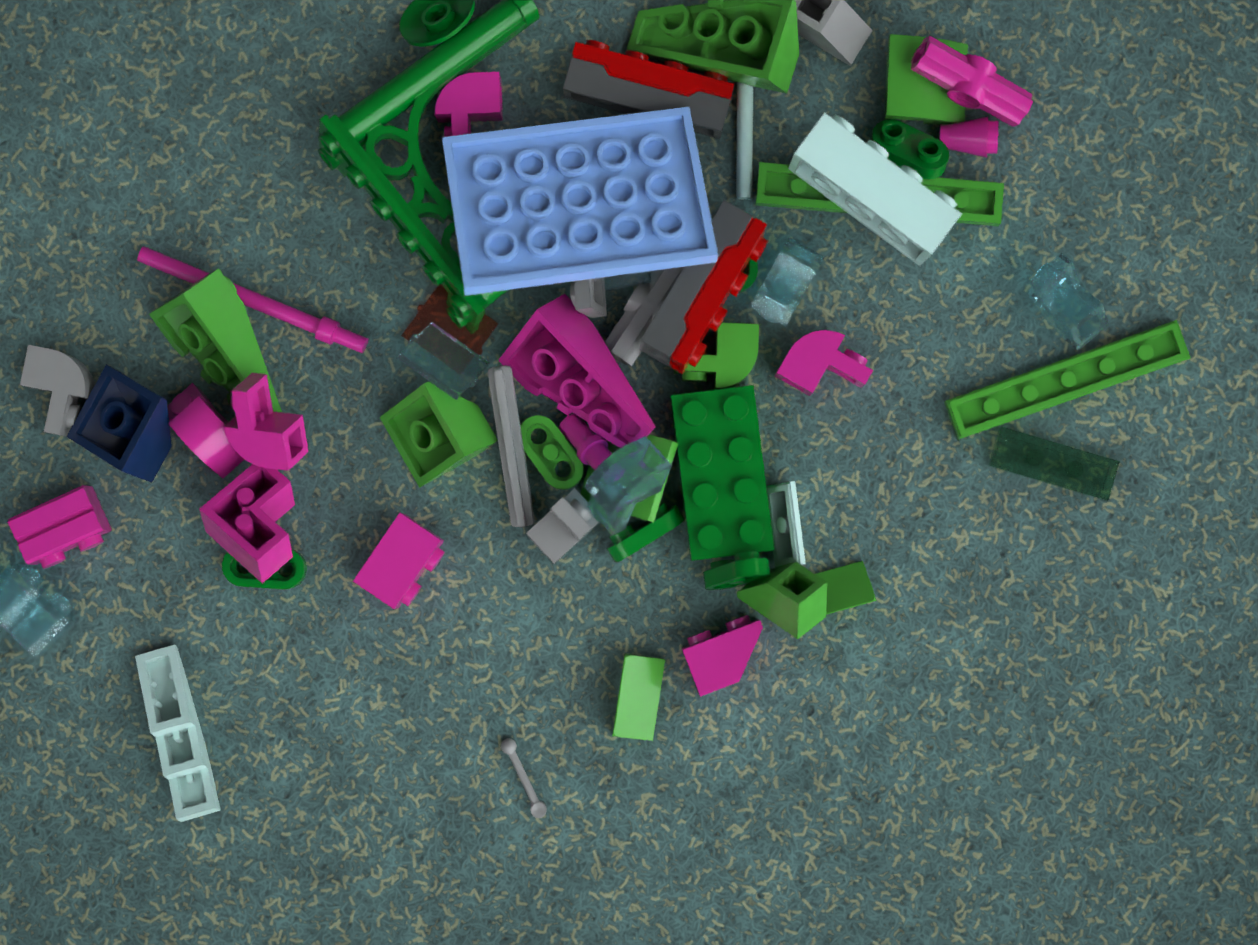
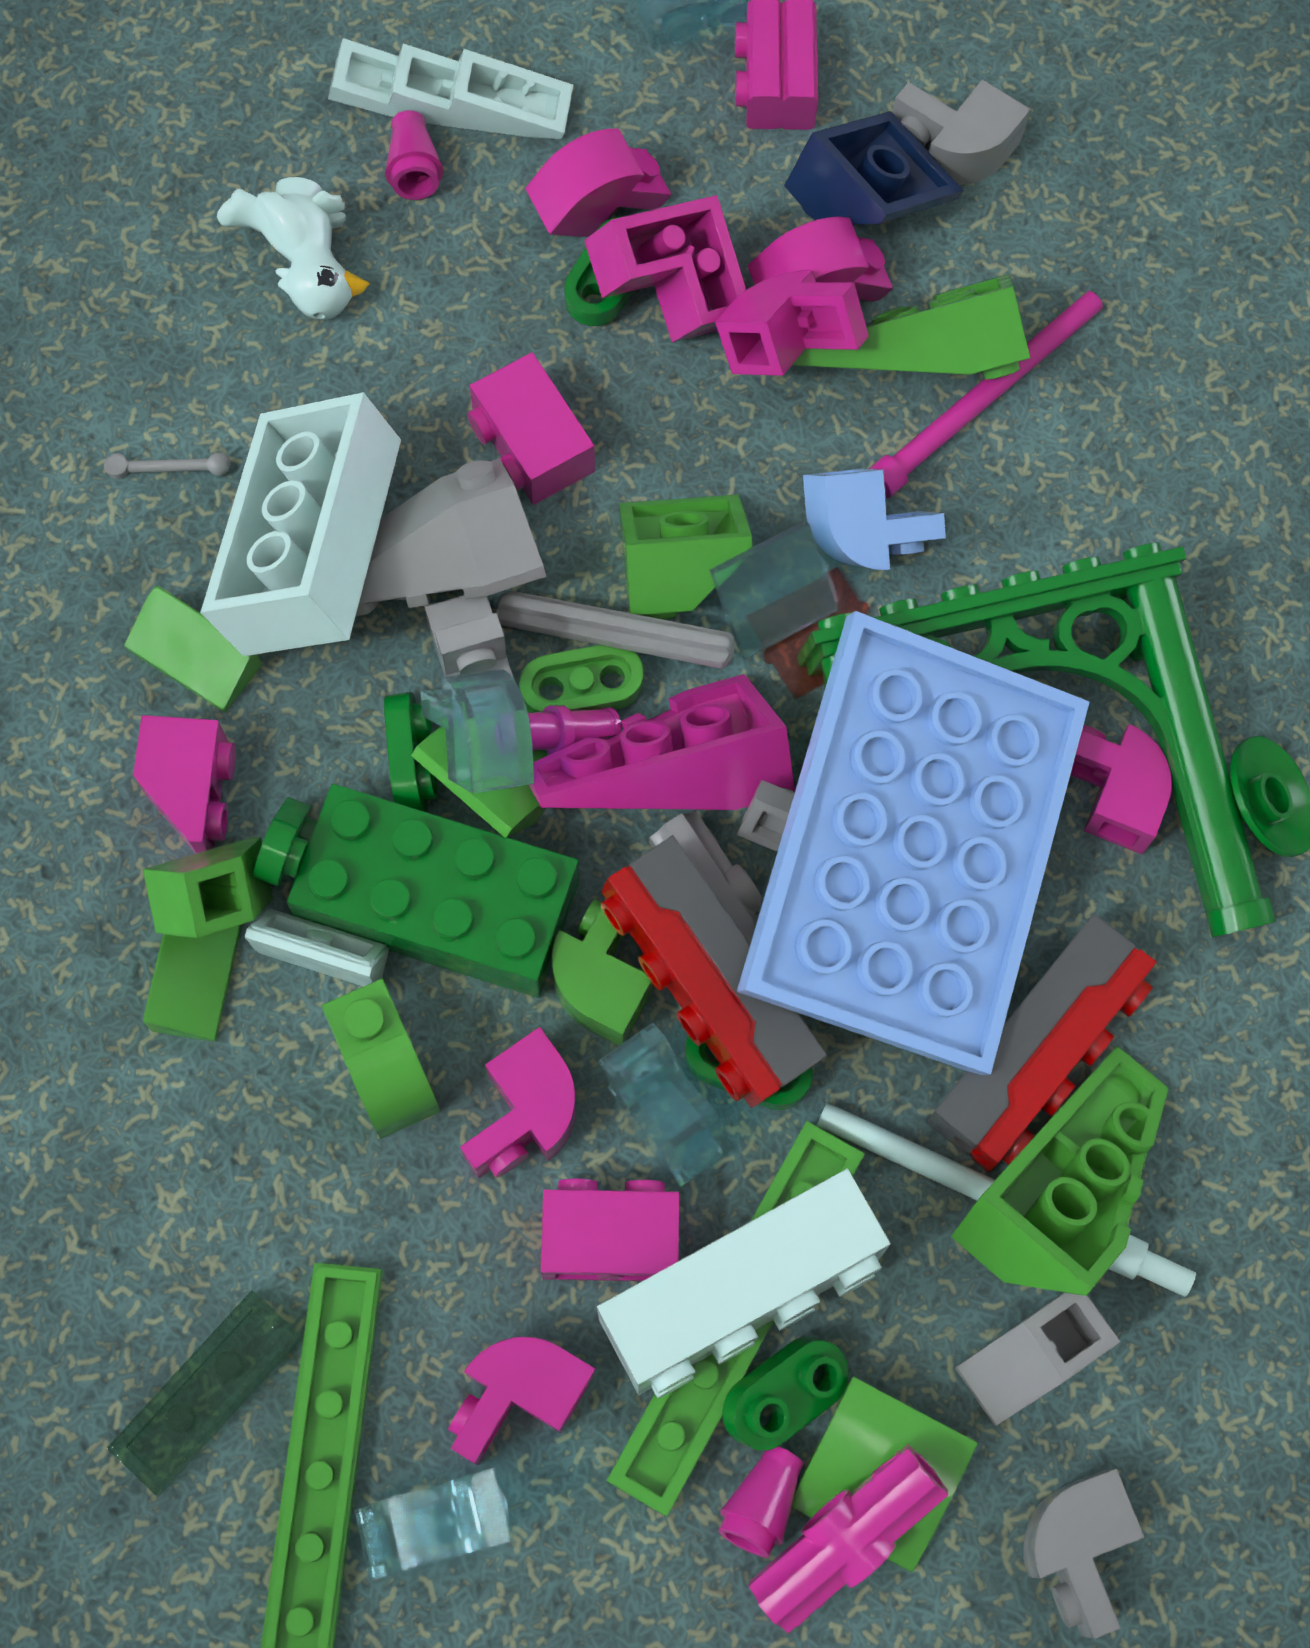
camera: 110 degrees right, 15 degrees down
(208, 601) = (593, 178): none -> dark pink brick
(239, 732) = (412, 159): none -> dark pink cone
(329, 774) = (300, 227): none -> light aqua animal
(375, 327) = (852, 523): none -> light blue brick
(509, 578) = (451, 537): none -> light grey wedge
(539, 659) = (302, 526): none -> light aqua brick
(834, 456) = (380, 1058): none -> bright green brick
(869, 282) = (608, 1232): none -> dark pink brick
(966, 293) = (523, 1374): none -> dark pink brick

